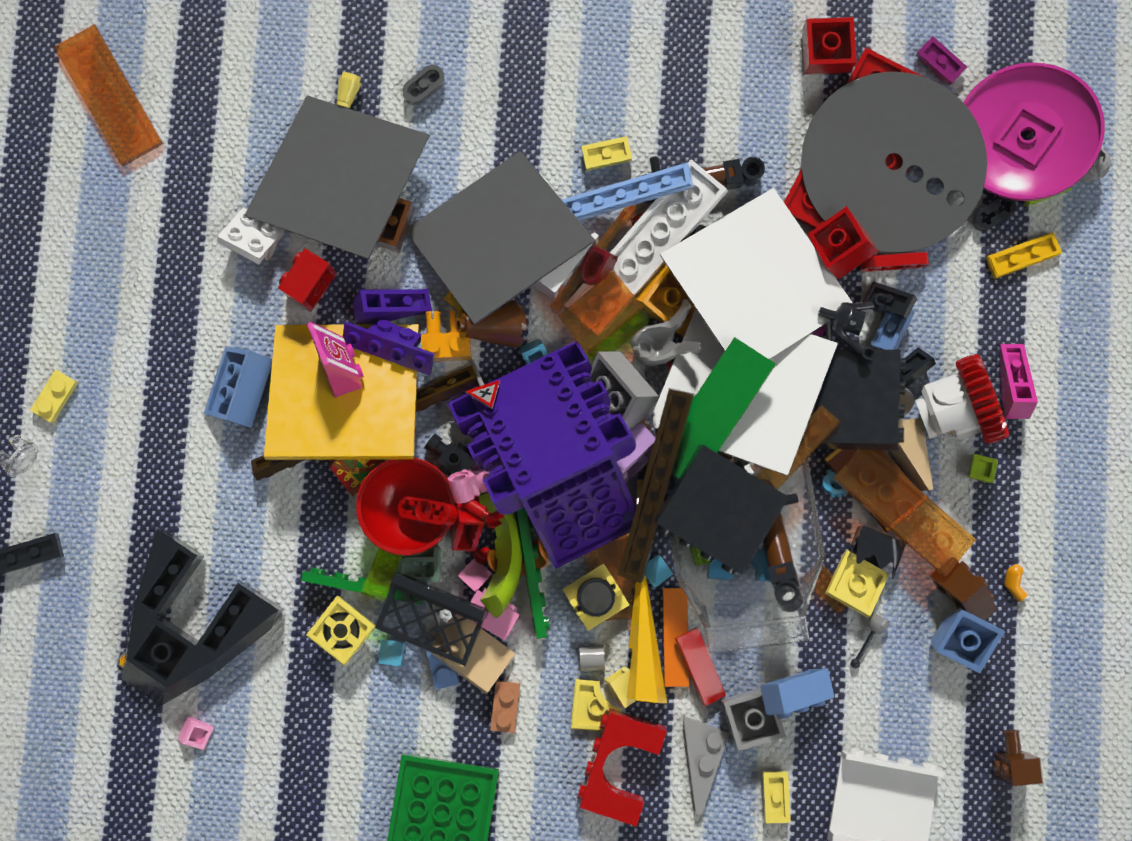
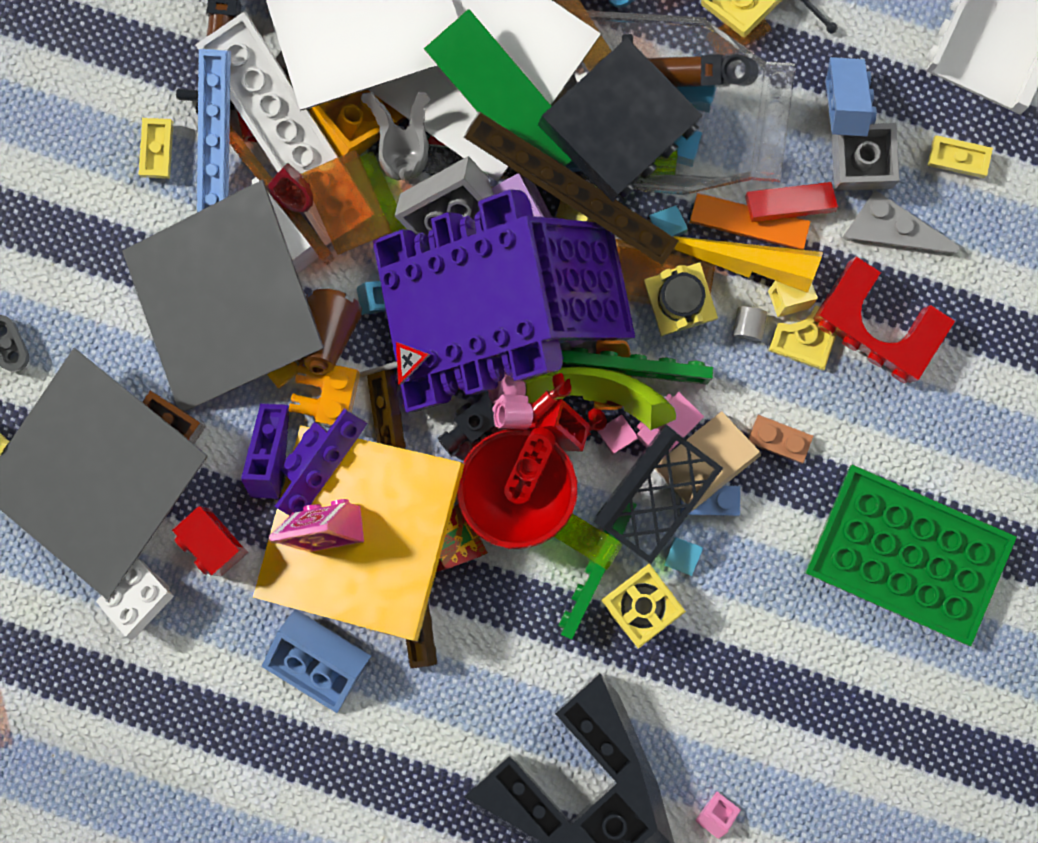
camera: 75 degrees left, 0 degrees up
(423, 566) = (593, 491): sand green slope -> none

